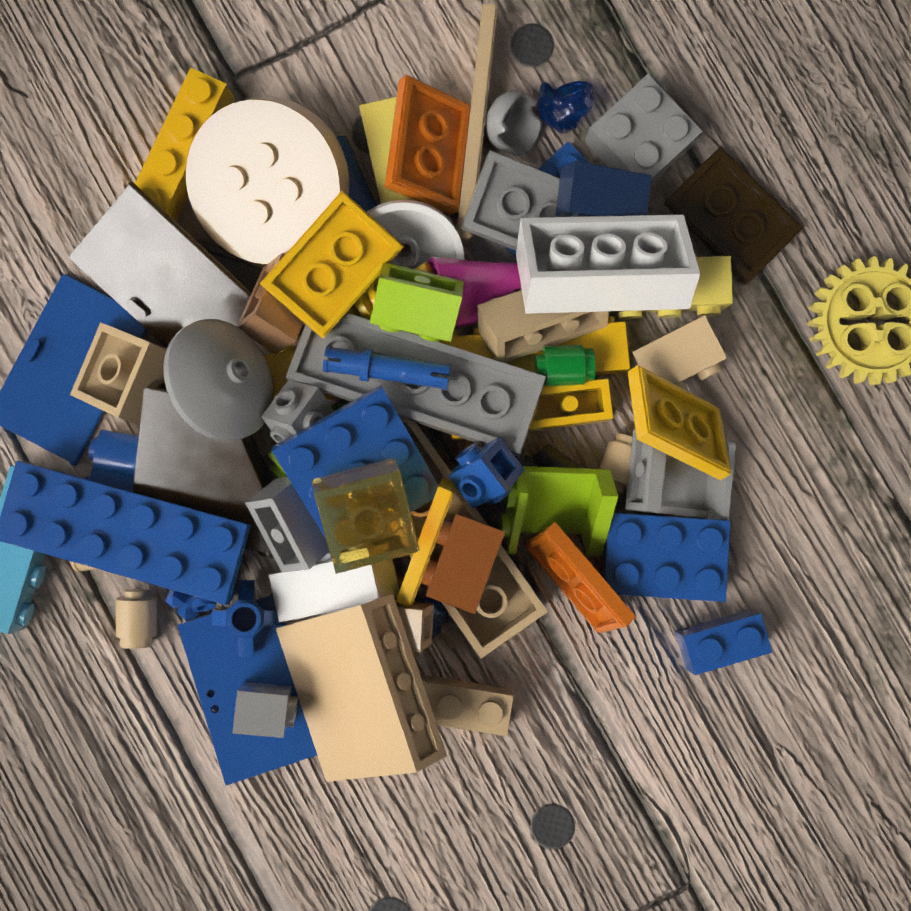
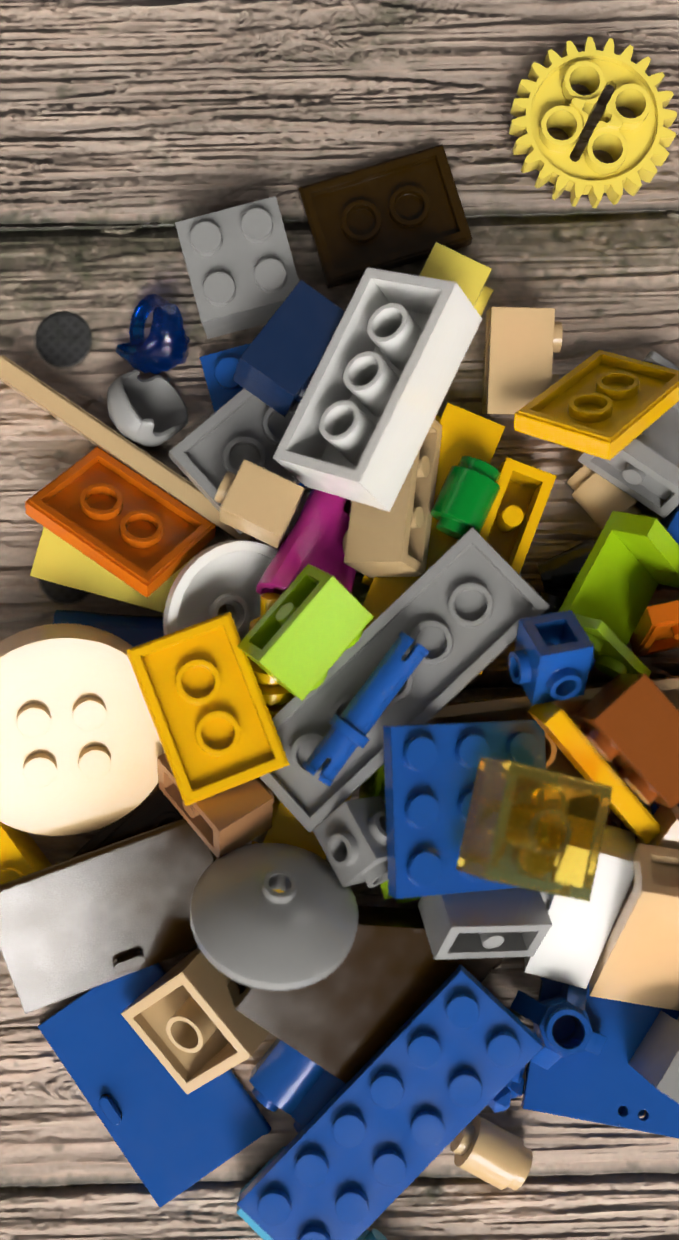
camera: 60 degrees left, 0 degrees up
(486, 226) = (258, 502): none -> tan brick

